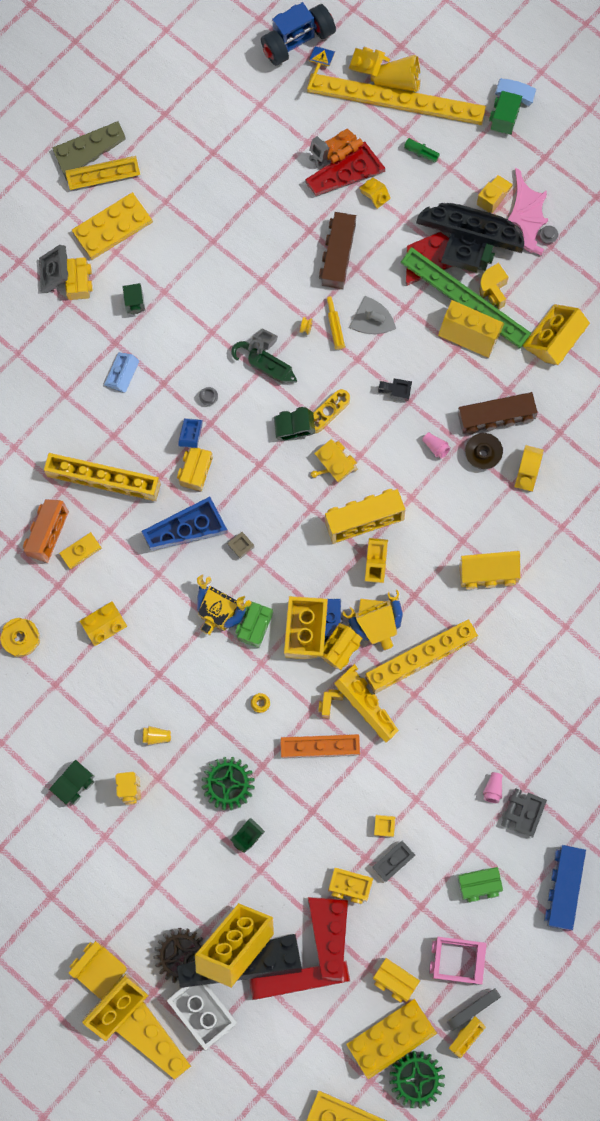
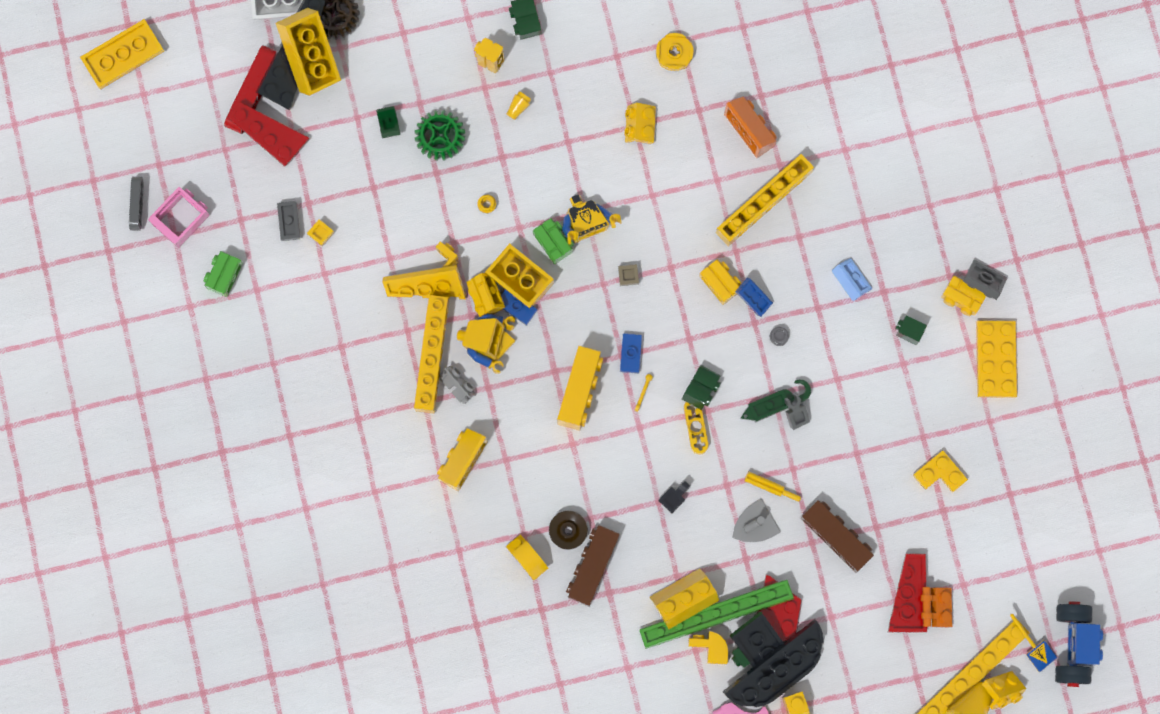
camera: 120 degrees right, 5 degrees up
(80, 550) = (715, 145): yellow plate -> none
(88, 147) = (1088, 384): olive wing -> none
(102, 172) = (1052, 382): yellow plate -> none
(186, 526) = (672, 246): blue wedge -> none
(230, 213) = (940, 467): none -> yellow plate
(304, 500) = (630, 353): none -> blue plate
(306, 325) = (786, 460): yellow bush -> none
(319, 151) = (943, 582): flat silver plate -> none
(320, 746) = (418, 226): orange plate -> none
(335, 459) = (646, 402): yellow bracket -> none
(350, 885) = (293, 174): yellow bracket -> none
(375, 191) = (872, 608): yellow bracket -> none
(376, 560) = (535, 372): yellow brick -> none
(391, 1039) = (159, 126): yellow plate -> none
(395, 980) = (199, 160): yellow brick -> none
(421, 150) = (884, 678): green axle -> none
(431, 611) = (452, 377): none -> light grey hinge
(434, 1077) = (105, 117): green gear -> none
(438, 446) = (599, 495): bright pink cone -> none
(467, 1037) = (120, 184): yellow plate -> none
(493, 789) = (287, 337): bright pink cone -> none
(529, 816) = (246, 349): dark grey plate -> none
(557, 333) = (628, 669): yellow slope -> none
(566, 887) = (171, 336): blue brick -> none

